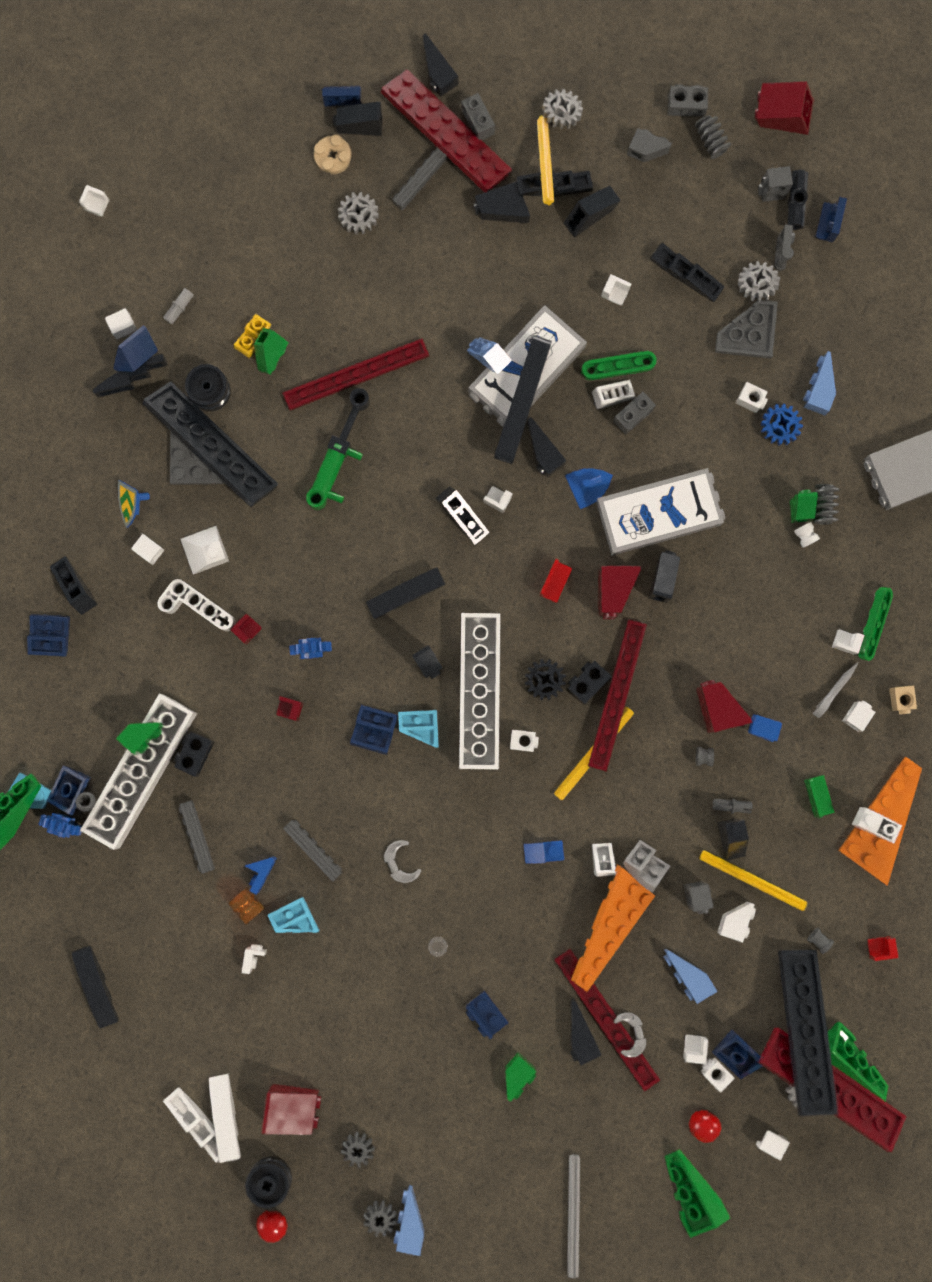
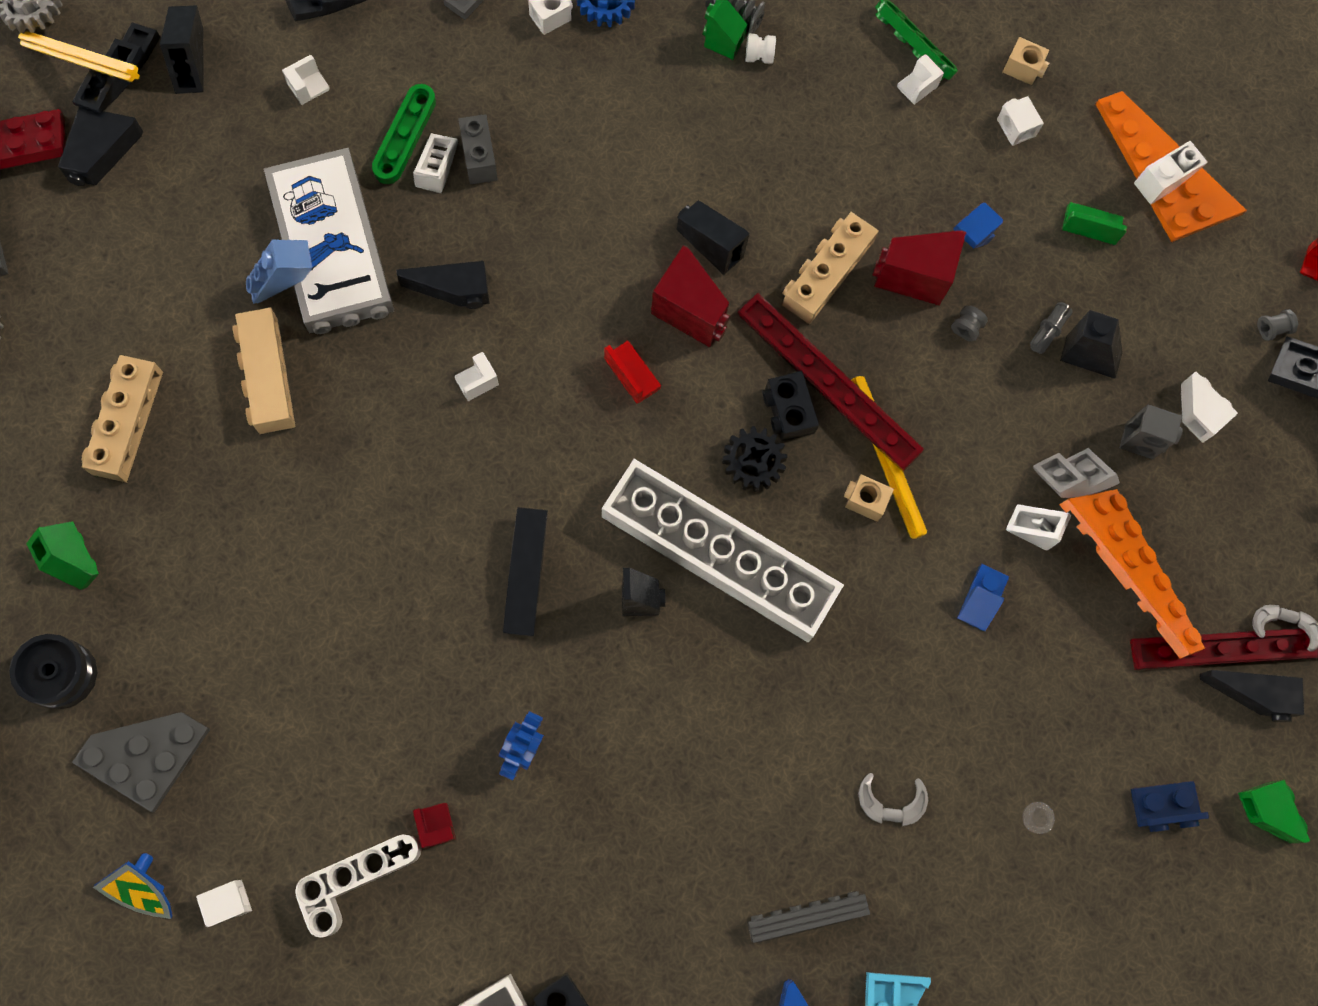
camera: 70 degrees left, 10 degrees down
(204, 550) = (281, 819): white slope -> none
(210, 444) = (133, 717): black plate -> none
(246, 342) = (29, 580): yellow slope -> none
(289, 708) = (586, 830): dark red panel -> none
(337, 451) = (274, 553): green piece -> none
(355, 374) = (181, 464): dark red tile -> none
(358, 328) = (122, 418): none -> tan brick
(374, 729) = (687, 728): dark blue slope -> none
(420, 725) = (719, 660): medium azure wing -> none
(430, 383) = (264, 371): none -> tan brick
(462, 514) = (465, 434): slope -> none
(515, 736) = (813, 545): white brick -> none
(522, 399) = (369, 263): black beam -> none
(567, 762) = (880, 493): none -> tan brick
(588, 485) = (532, 260): blue shield -> none
(660, 511) = (622, 194): brick -> none
(689, 656) = (829, 268): none -> tan brick
(696, 981) = (1259, 502): medium blue slope -> none
(753, 880) = (1158, 360): yellow axle -> none
(826, 701) = (982, 149): light grey piece -> none

